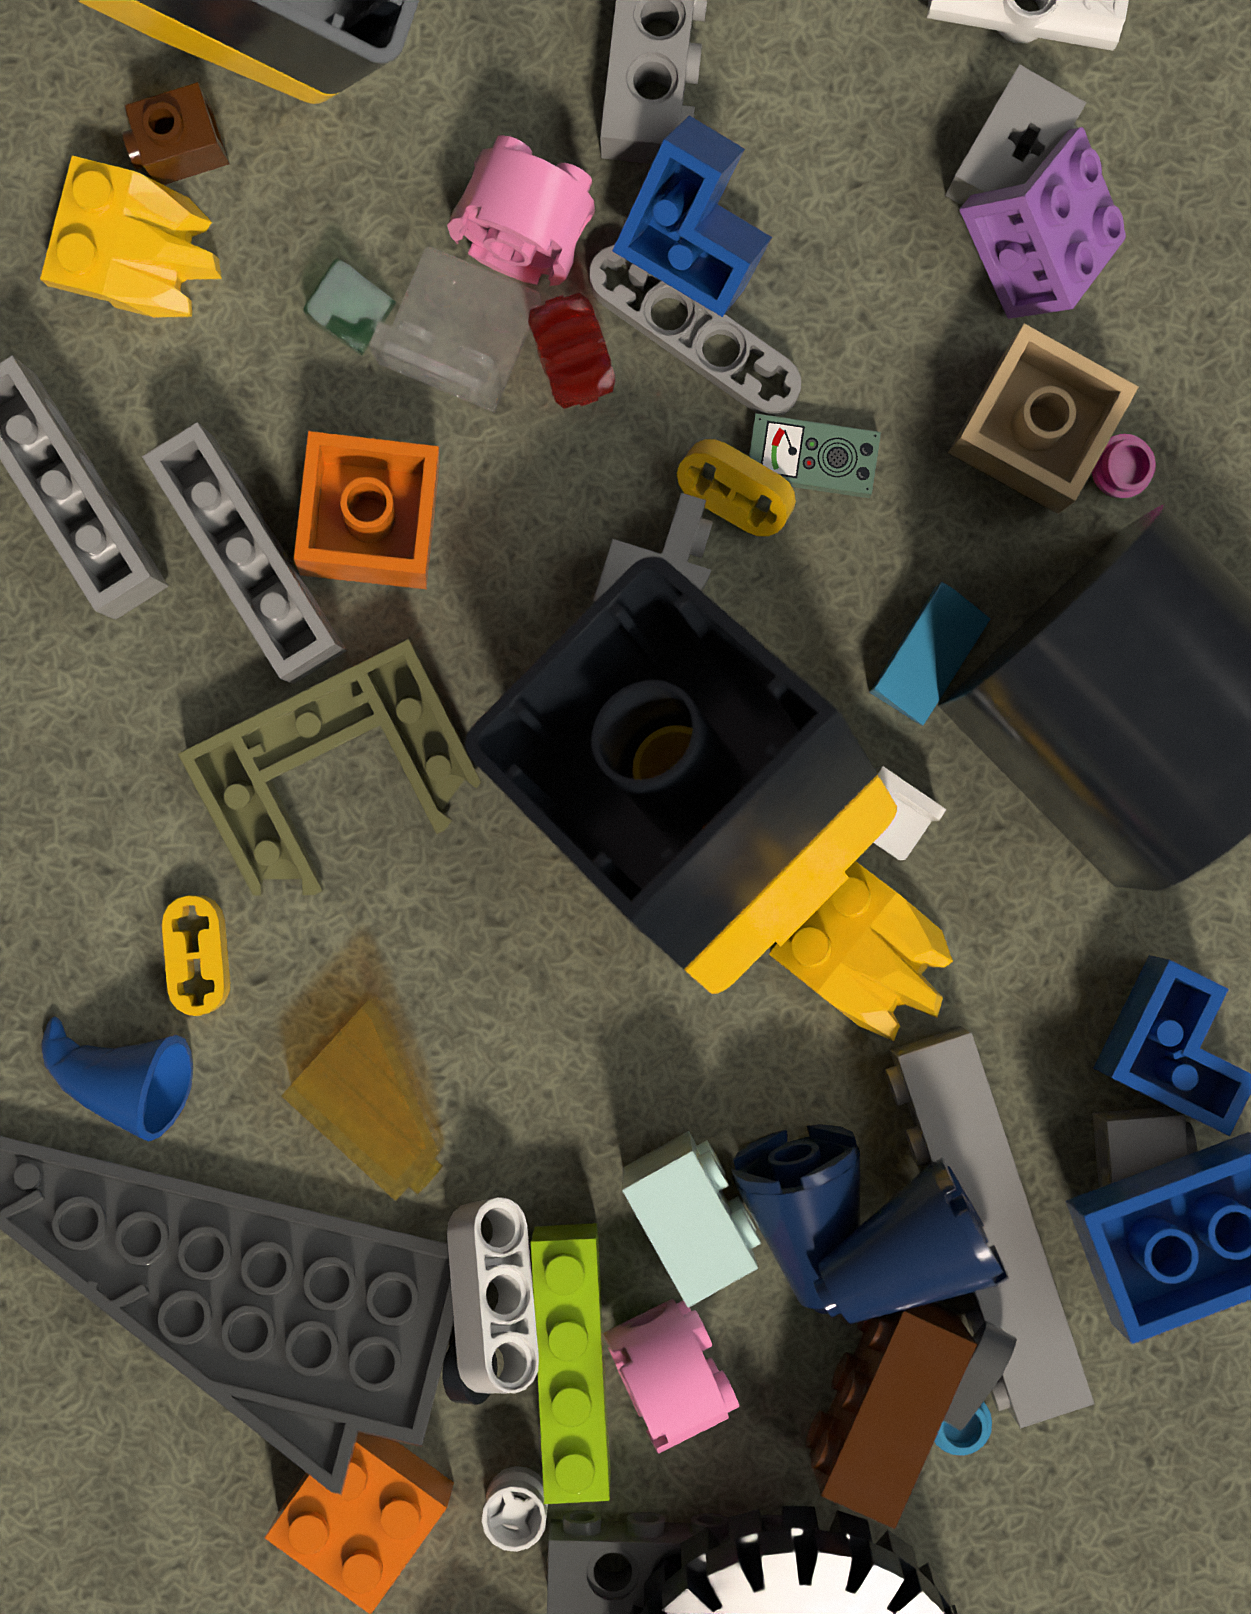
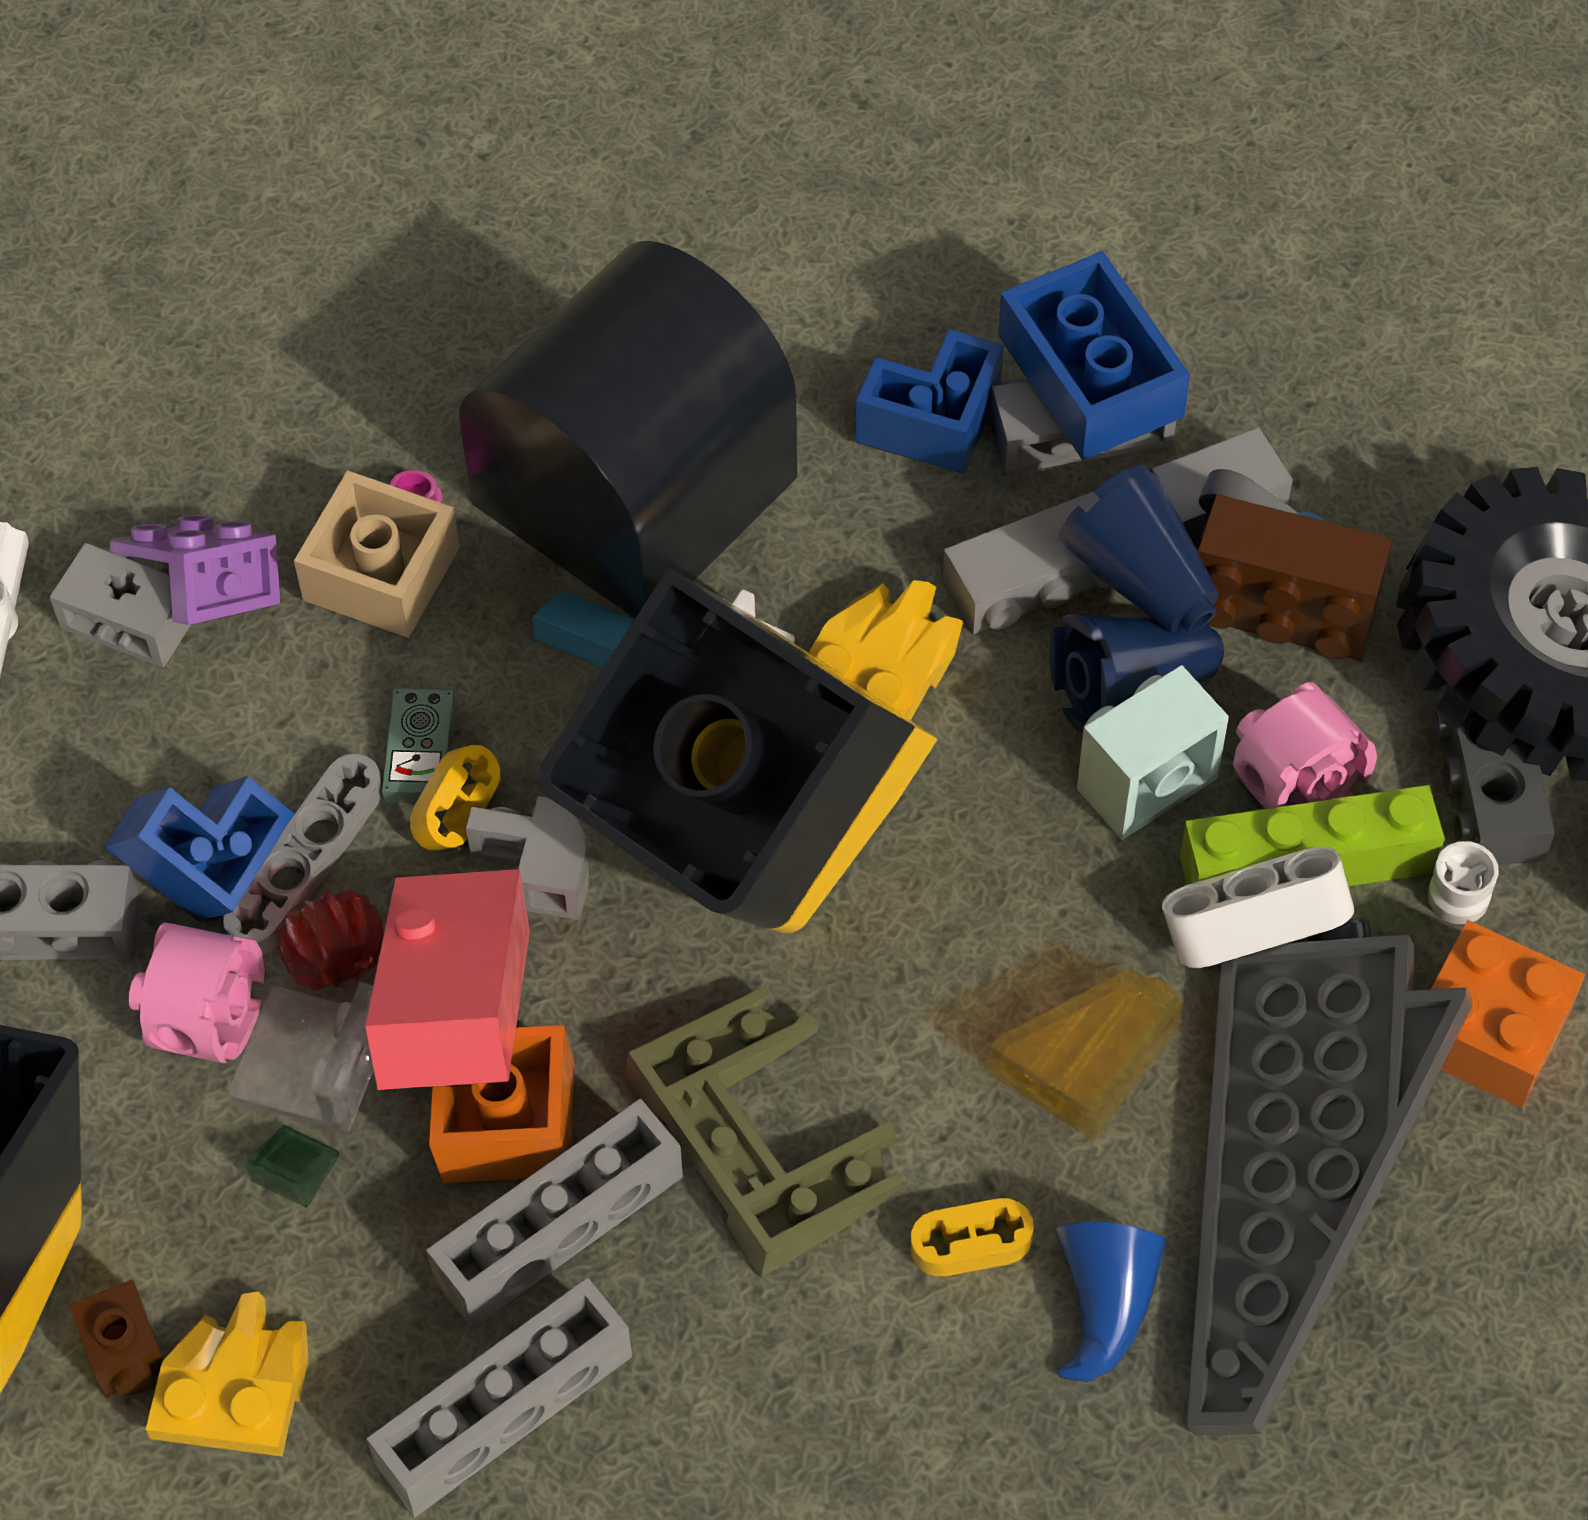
camera: 95 degrees left, 30 degrees down
(485, 460) = (449, 980): none -> coral brick

